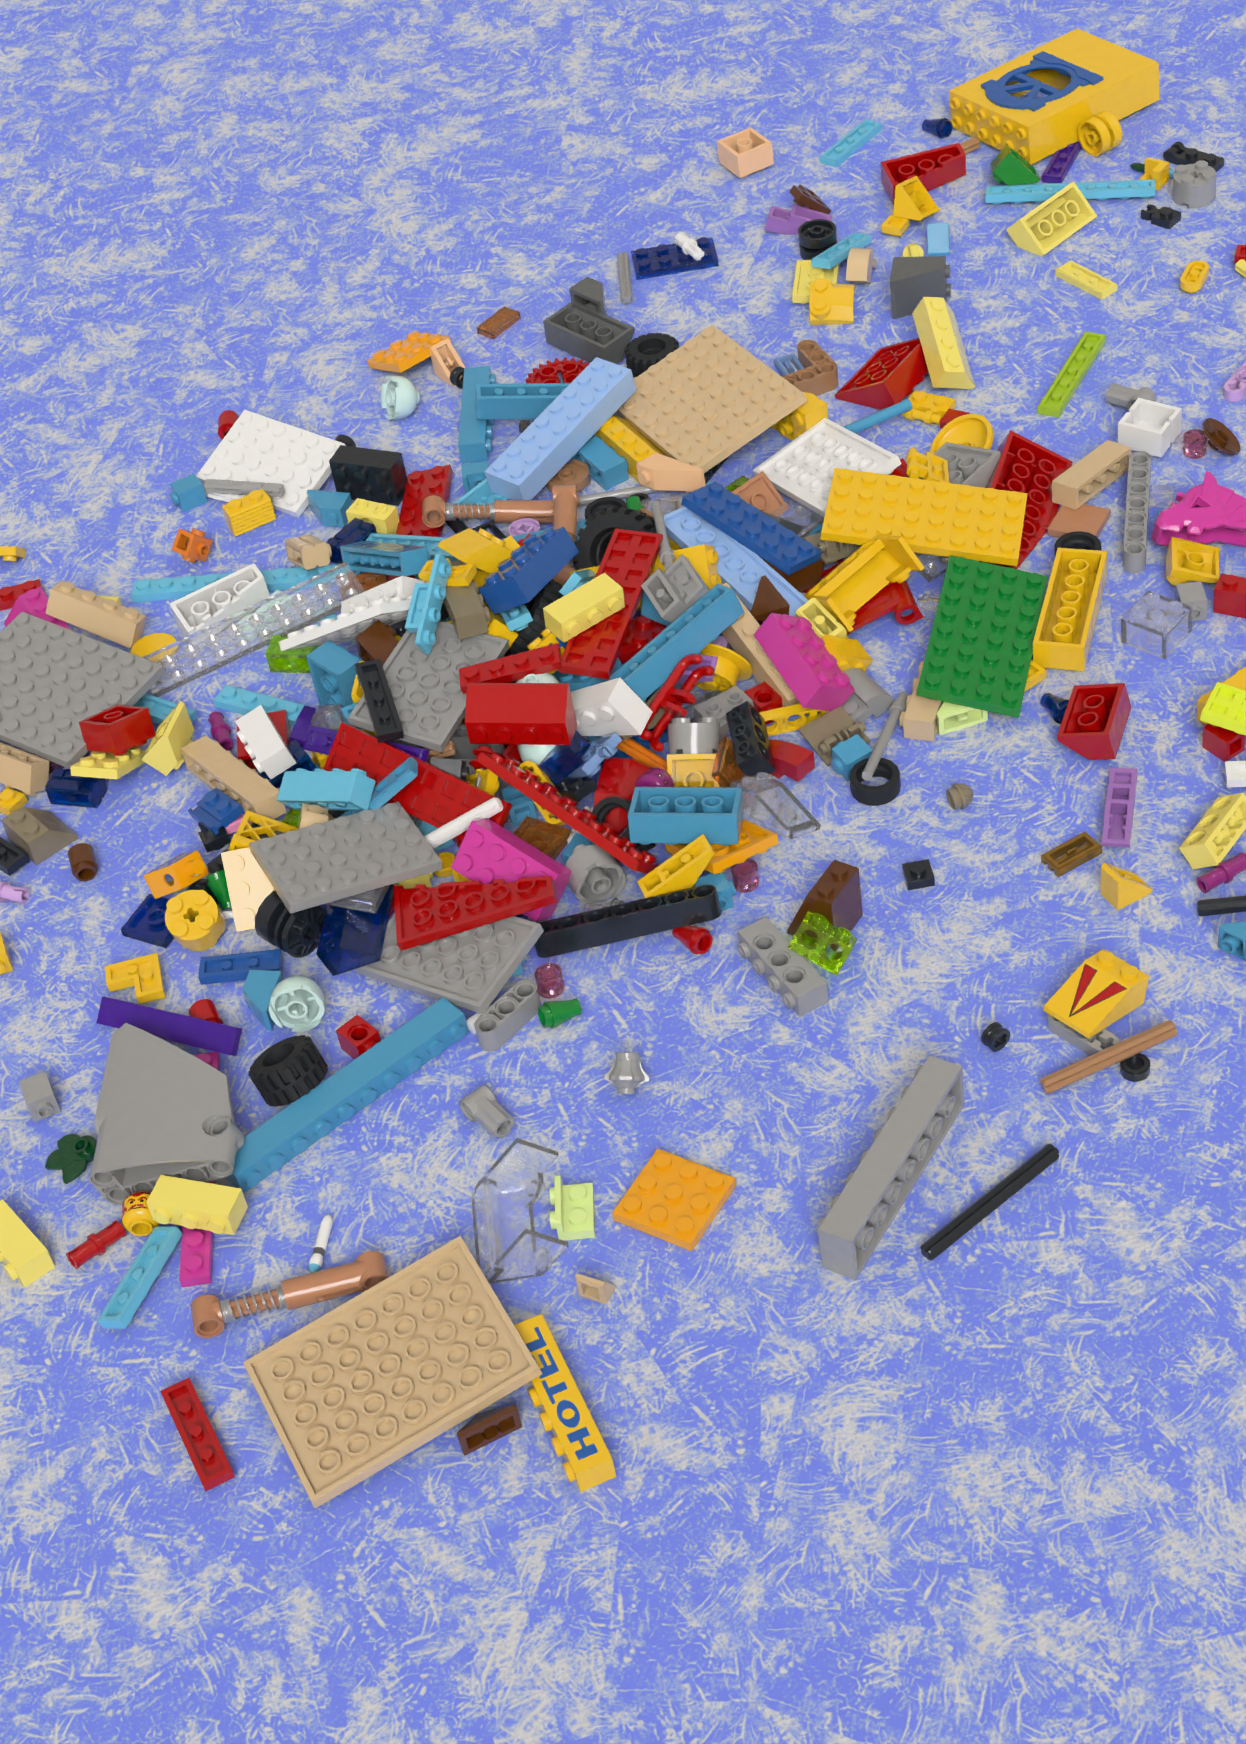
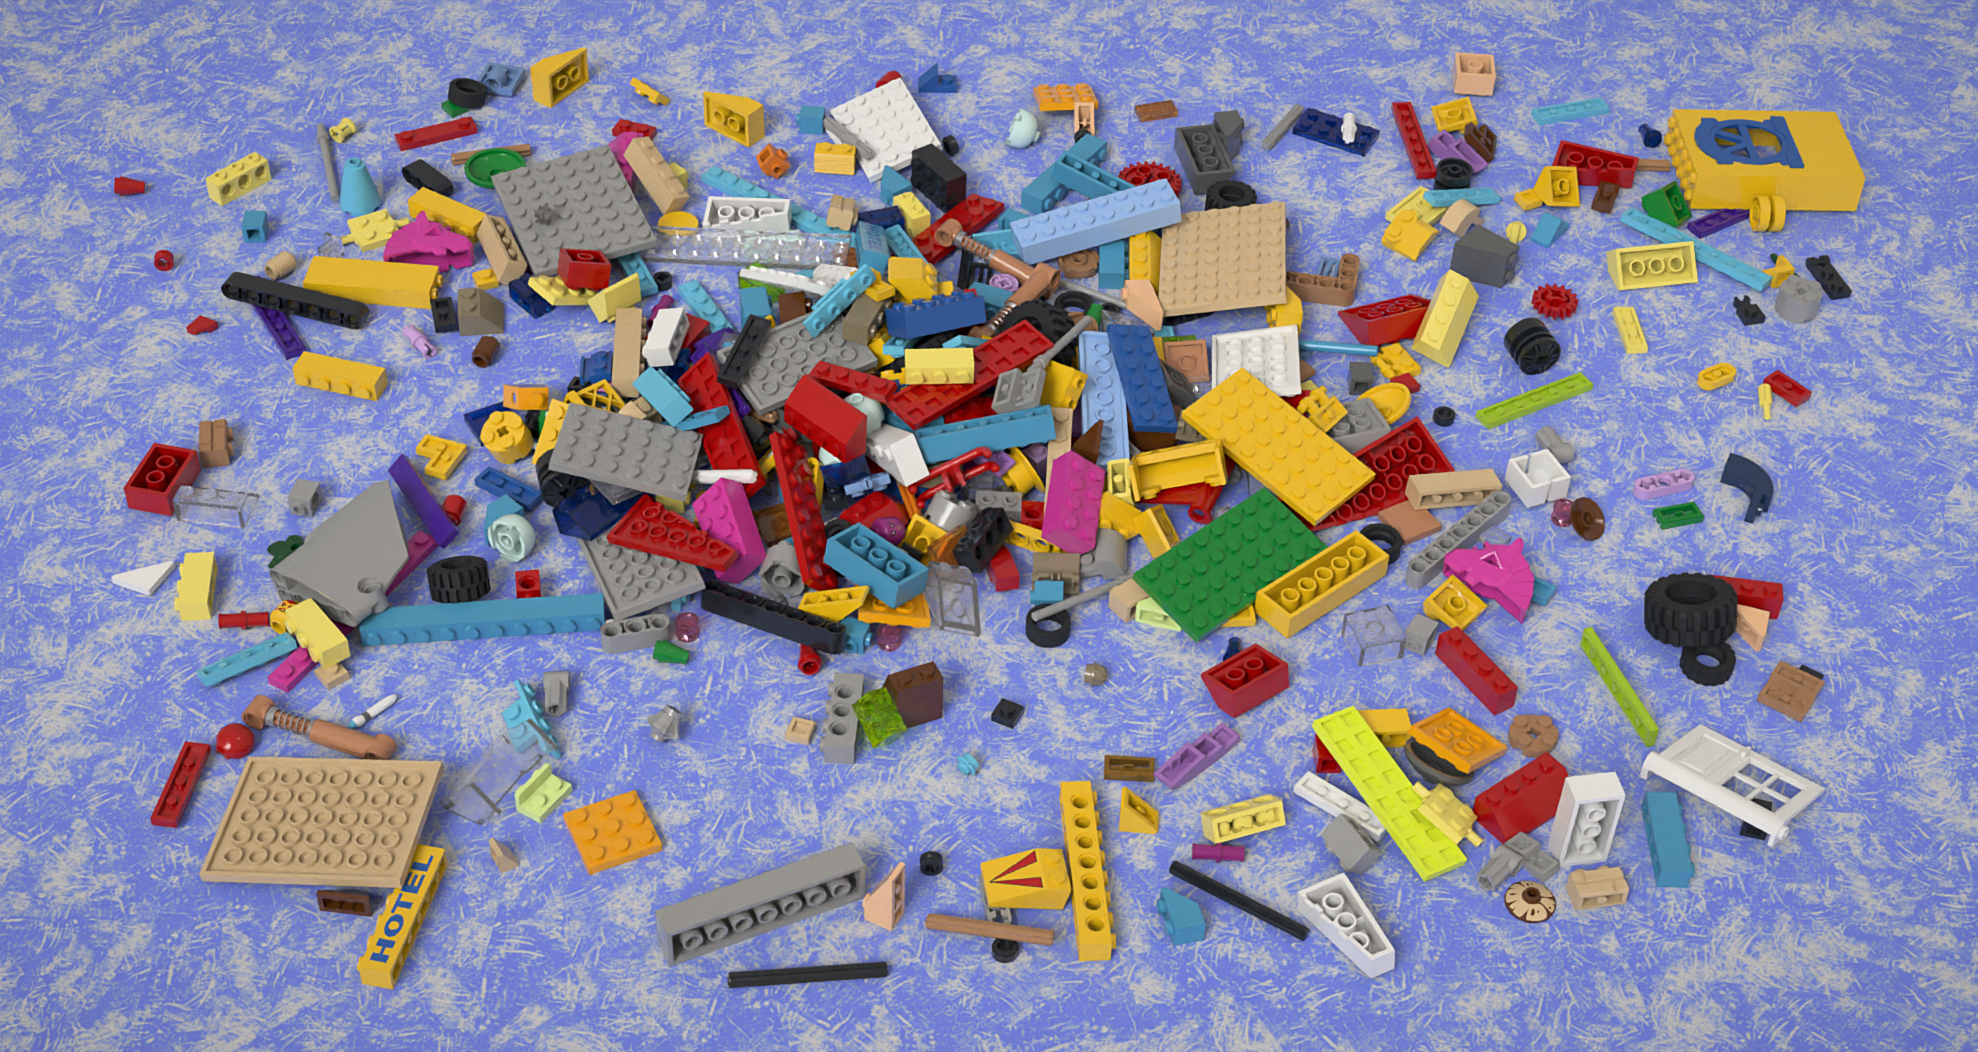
camera: 25 degrees right, 0 degrees up
(26, 703) = (543, 213): none -> flat silver plate
(113, 527) = (734, 117): none -> yellow slope
(194, 702) = (663, 280): none -> black bush
(209, 1359) = (235, 741): none -> red hair
(243, 1240) = (332, 675): none -> tan plate
(269, 402) = (933, 83): none -> blue slope
(477, 1151) = (527, 708): none -> medium azure bracket
(749, 230) = (1413, 140): none -> red plate
(750, 1003) = (800, 730): none -> tan tile
(765, 191) = (1454, 115): none -> yellow slope
(887, 649) = (1156, 530): none -> yellow slope
(916, 434) = (1359, 377): none -> dark grey brick
(933, 936) = (967, 764): none -> medium azure plate
(955, 191) = (1605, 197): none -> reddish brown plate
(998, 1086) = (887, 900): none -> light nougat slope
(1006, 289) = (1554, 301): none -> red gear
(1014, 424) = (1444, 416): none -> black tile
(1032, 330) = (1532, 346): none -> black wheel
(1169, 980) = (1085, 871): none -> yellow brick

